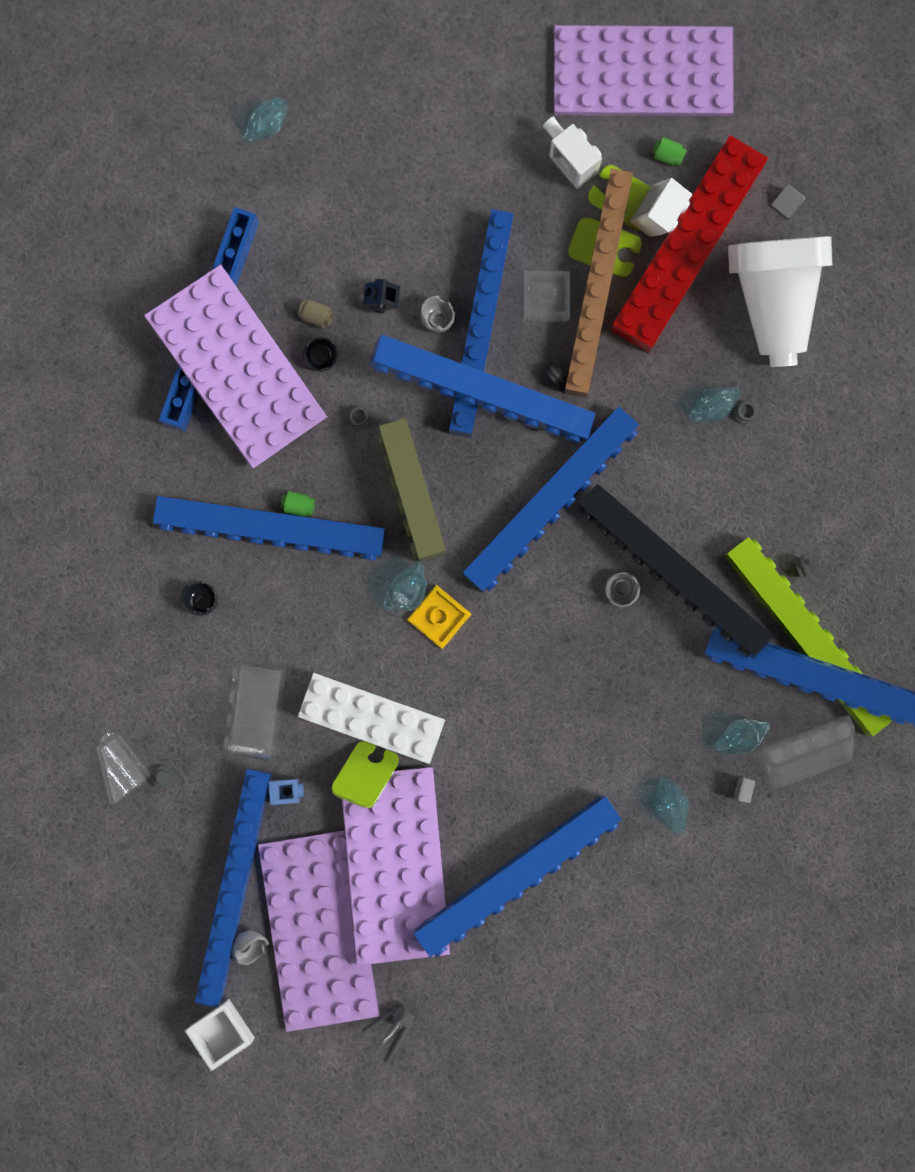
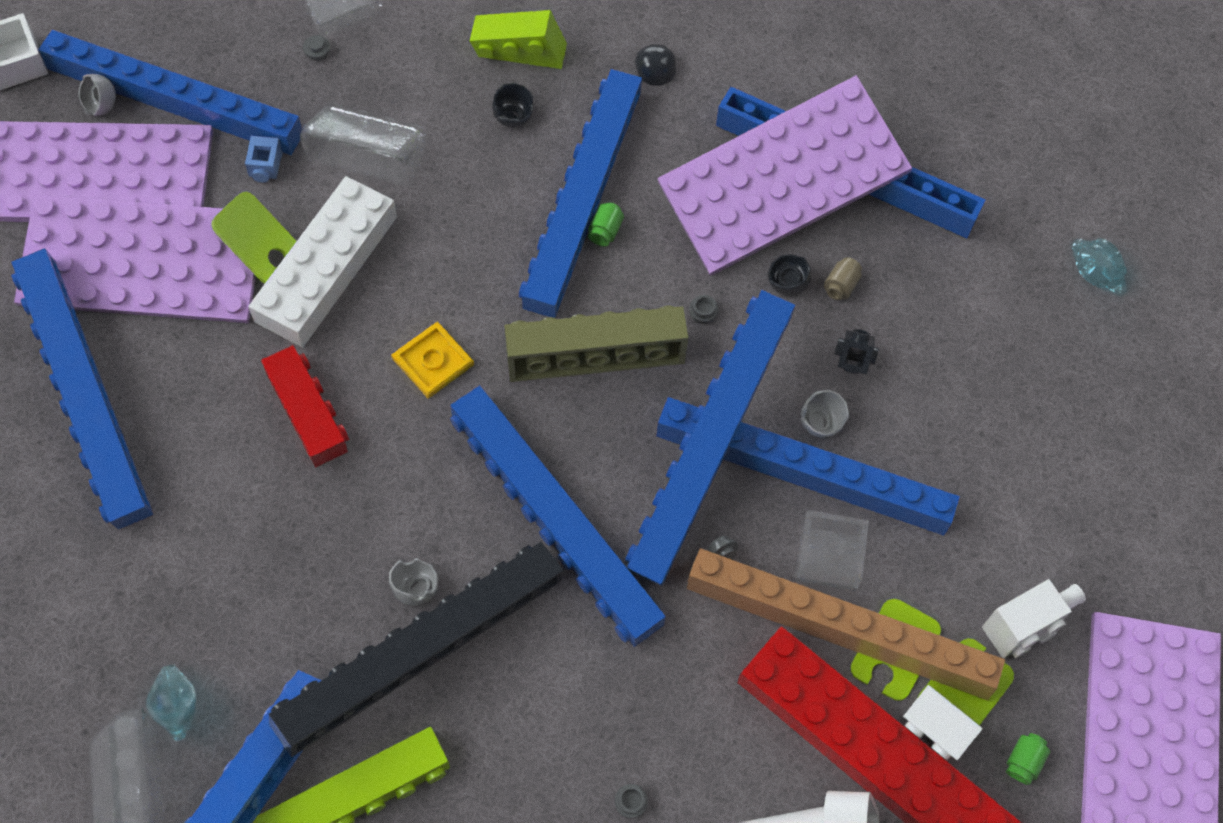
camera: 95 degrees right, 20 degrees down
(131, 607) = (520, 38): none -> lime wedge
(133, 490) = (655, 64): none -> black hair
(407, 589) = (475, 322): clear light blue hat -> none
(498, 703) = (305, 406): none -> red brick
(671, 804) = (112, 599): clear light blue hat -> none
(715, 404) = (650, 761): clear light blue hat -> none
(744, 789) = (101, 697): light grey slope -> none

